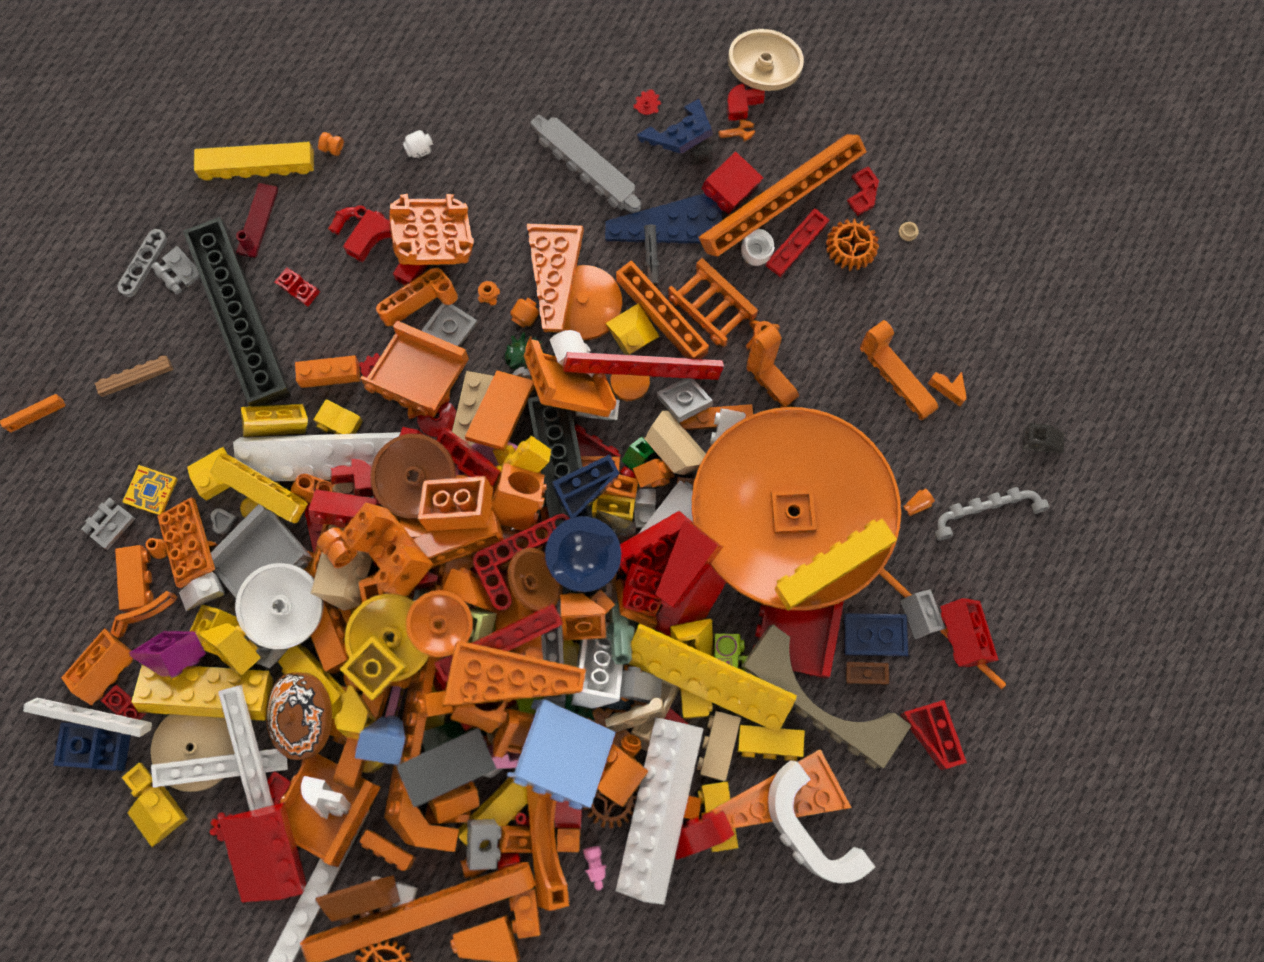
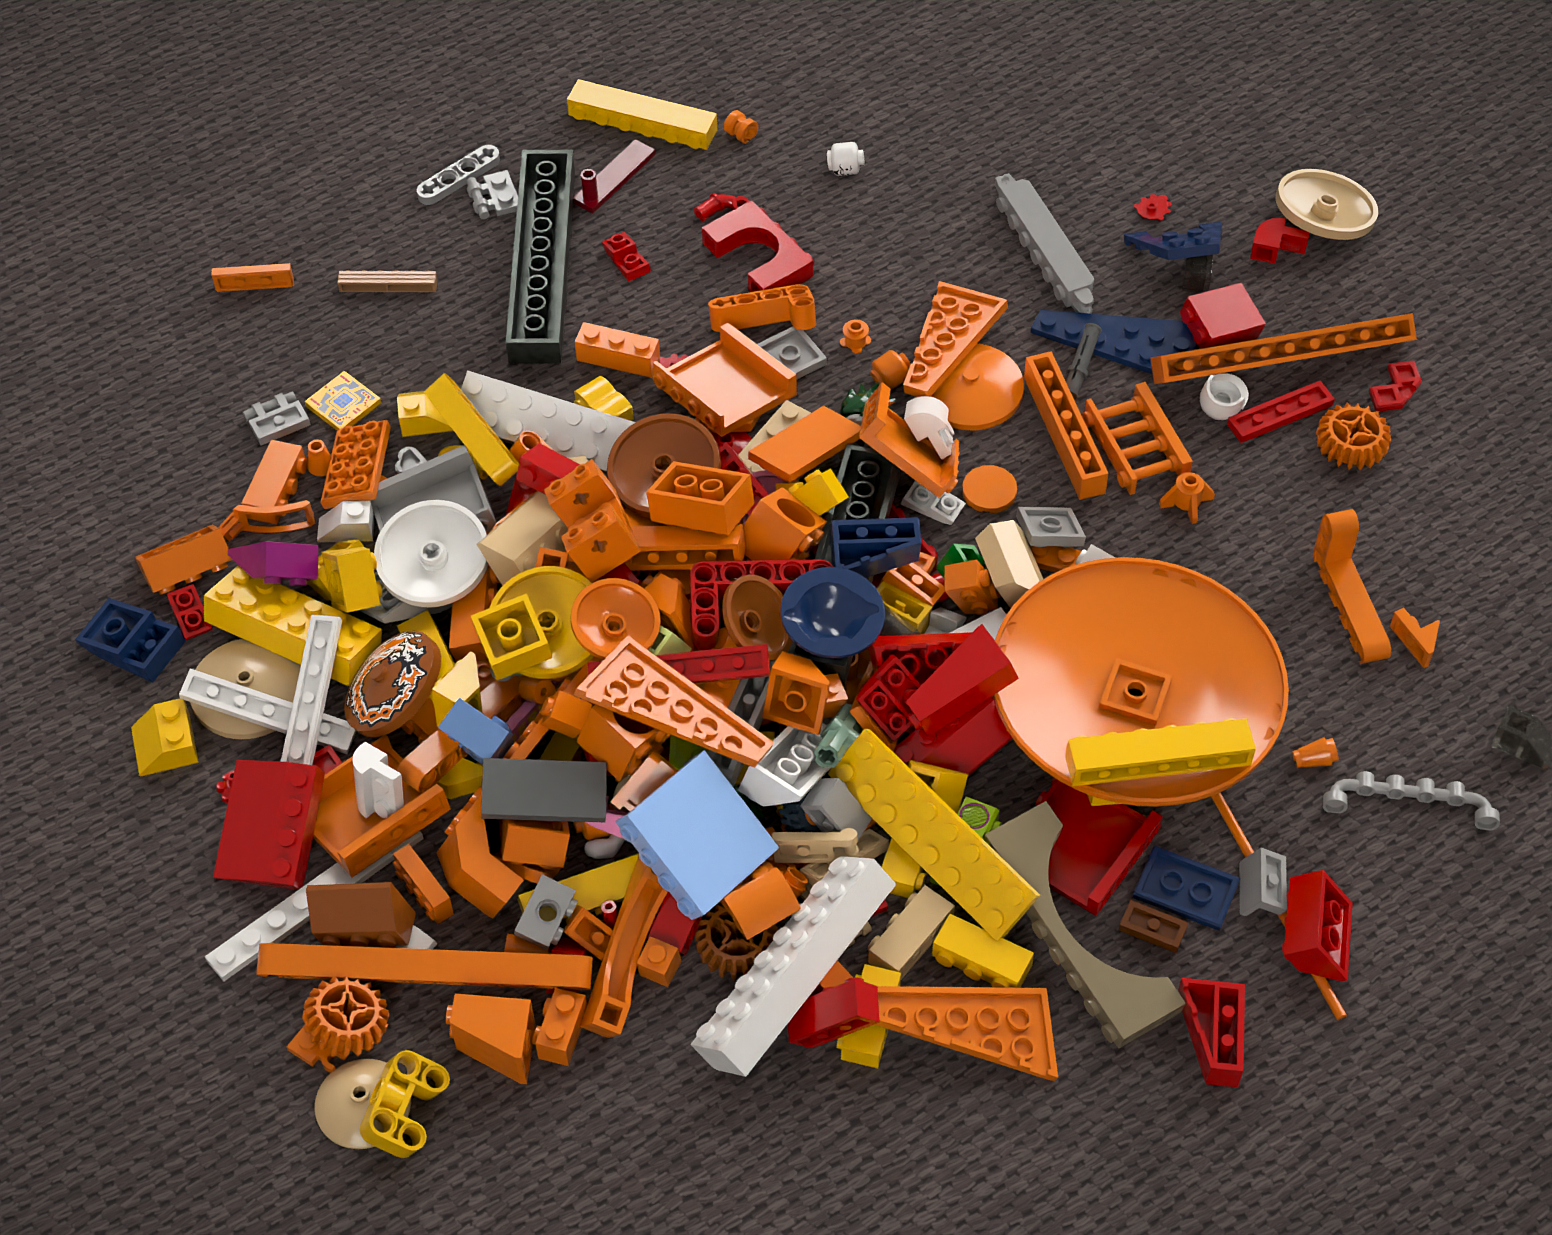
camera: 25 degrees right, 20 degrees down
(88, 717) = (144, 600): white tile -> none
(138, 780) = (163, 690): yellow bracket -> none
(273, 420) = (525, 374): yellow slope -> none
(336, 548) = (533, 507): orange wheel -> none
(357, 473) = (588, 447): red brick -> none
(430, 231) = (815, 243): orange plate -> none
(596, 871) = (675, 1018): bright pink piece -> none
(632, 330) = (1019, 434): yellow slope -> none
(642, 366) = (1013, 465): red plate -> none
(739, 131) = (1259, 272): orange bar -> none
(761, 364) = (1173, 504): orange beam -> none
(780, 802) = (968, 1087): white arch -> none
(908, 231) = (1438, 448): tan plate -> none

